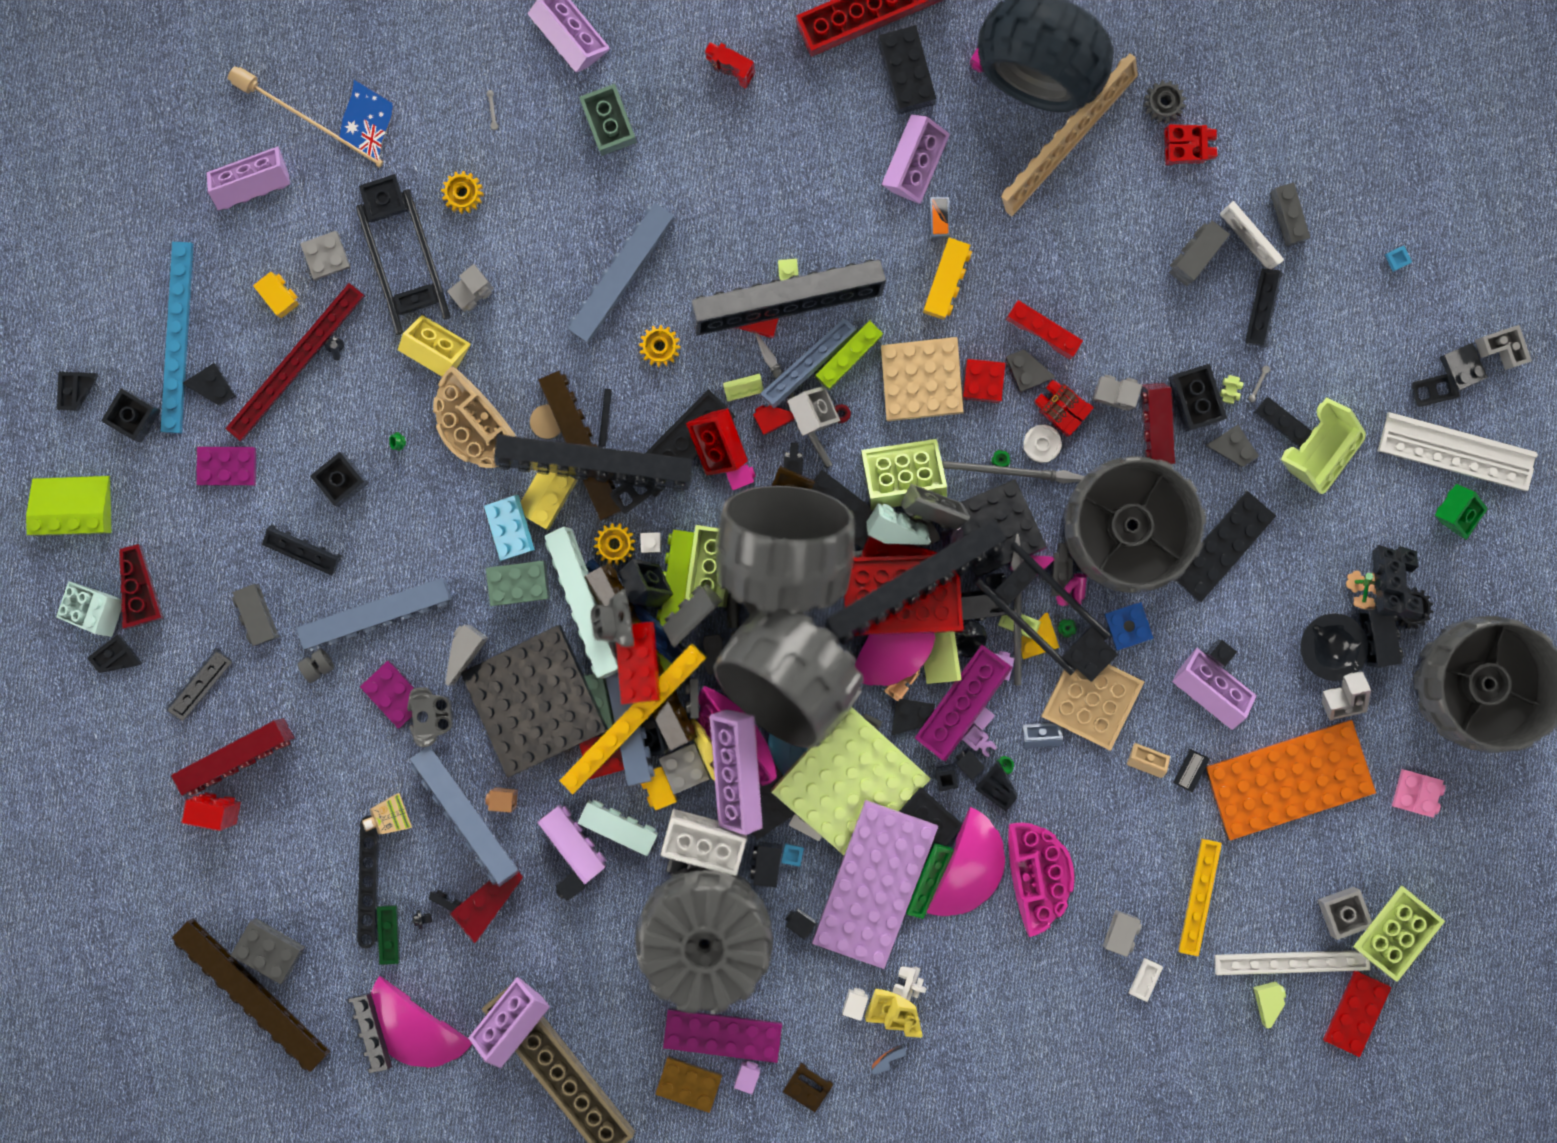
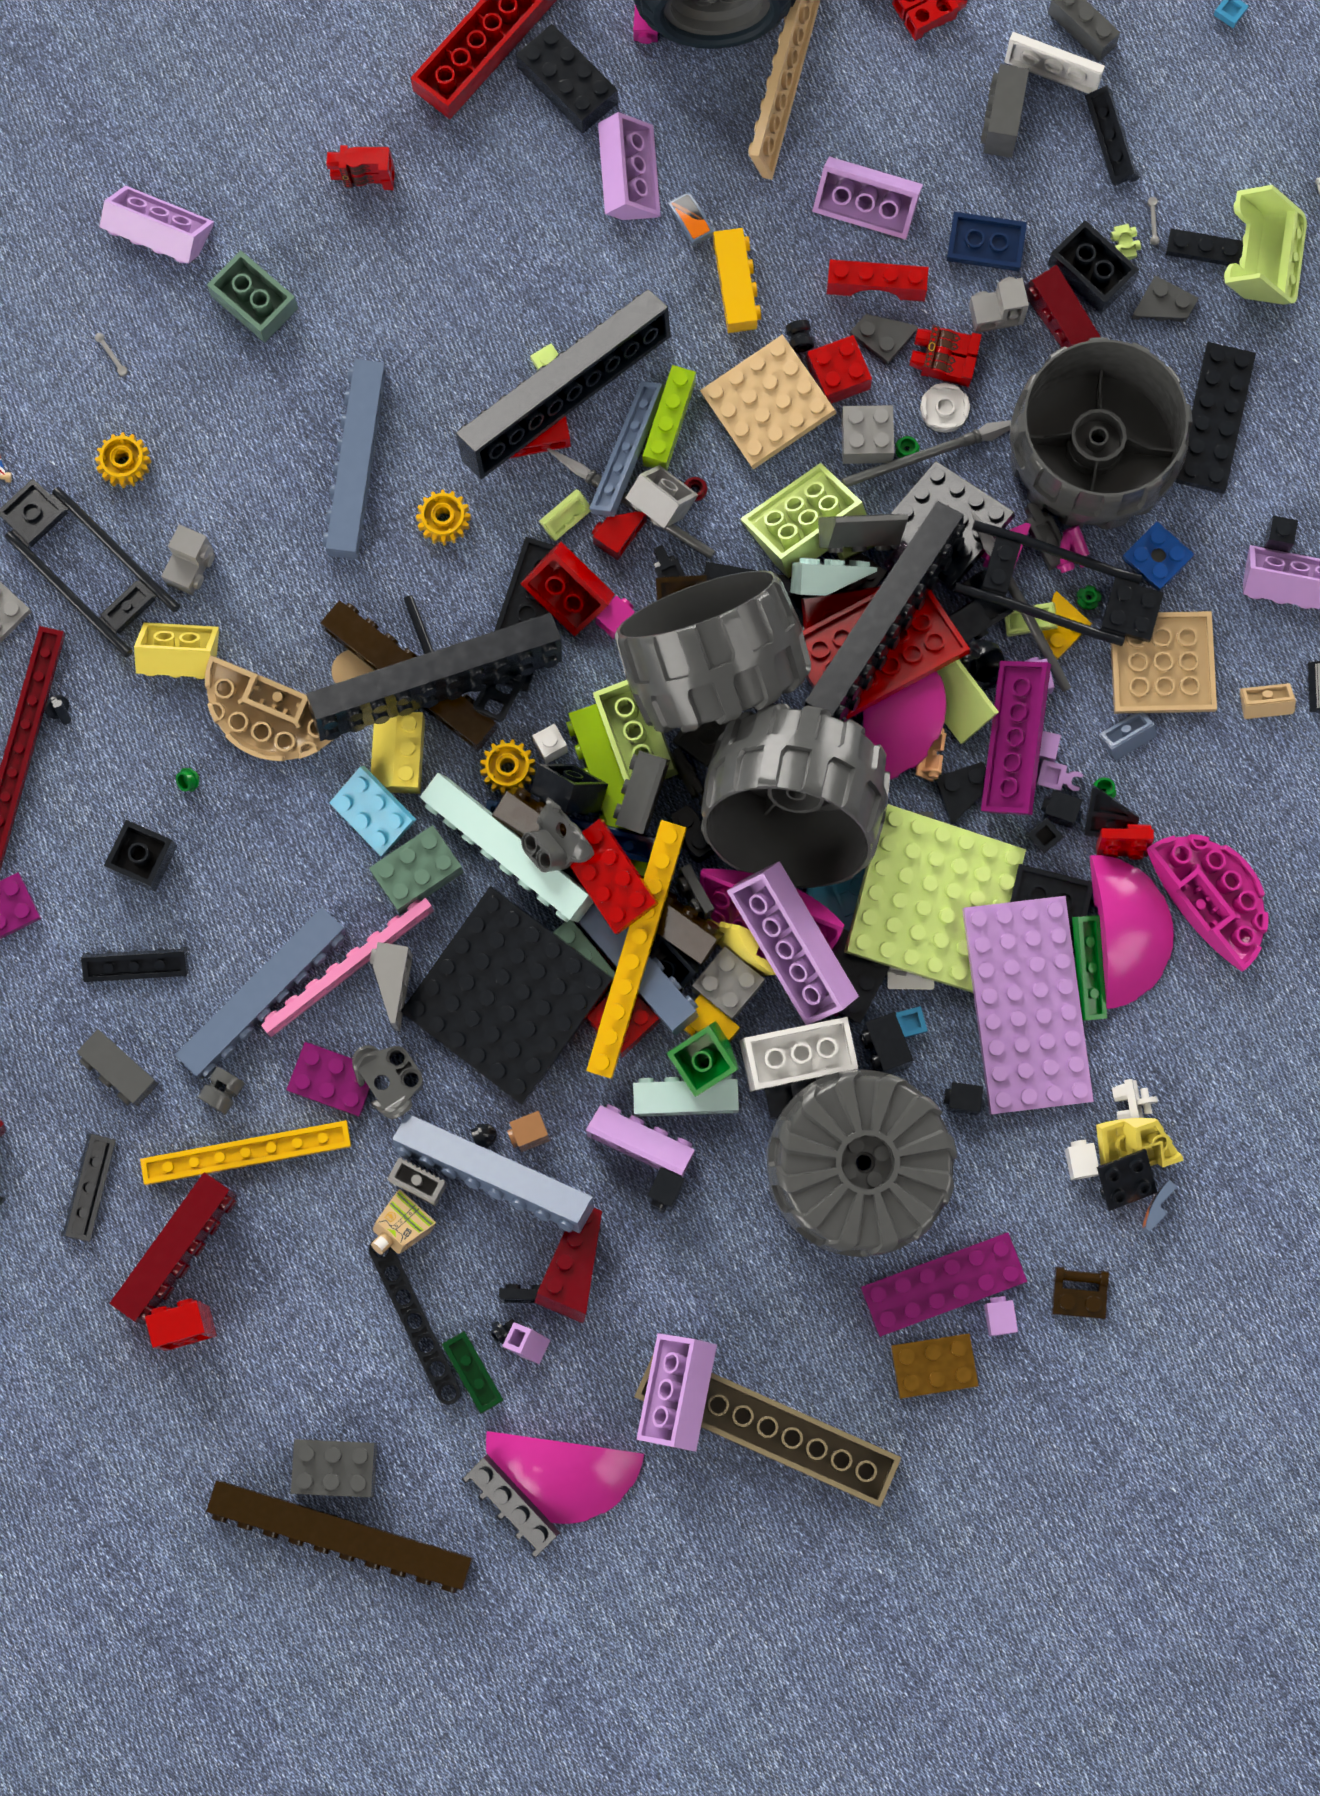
camera: 25 degrees left, 10 degrees down
(312, 715) = (245, 1152): none -> yellow plate
(413, 793) = (417, 1181): none -> light grey brick
(431, 935) = (526, 1343): none -> lavender brick
(432, 626) = (340, 972): none -> bright pink plate
(473, 784) = (484, 1135): none -> black plate
(640, 813) = (704, 1059): none -> green slope
(876, 1033) = (1126, 1180): none -> black hinge
(969, 342) = (799, 336): none -> black wheel
(978, 437) = (867, 434): none -> light grey brick
(1005, 814) = (1125, 842): none -> red plate
(1069, 265) = (867, 197): none -> lavender slope
(1135, 339) = (986, 241): none -> dark blue plate

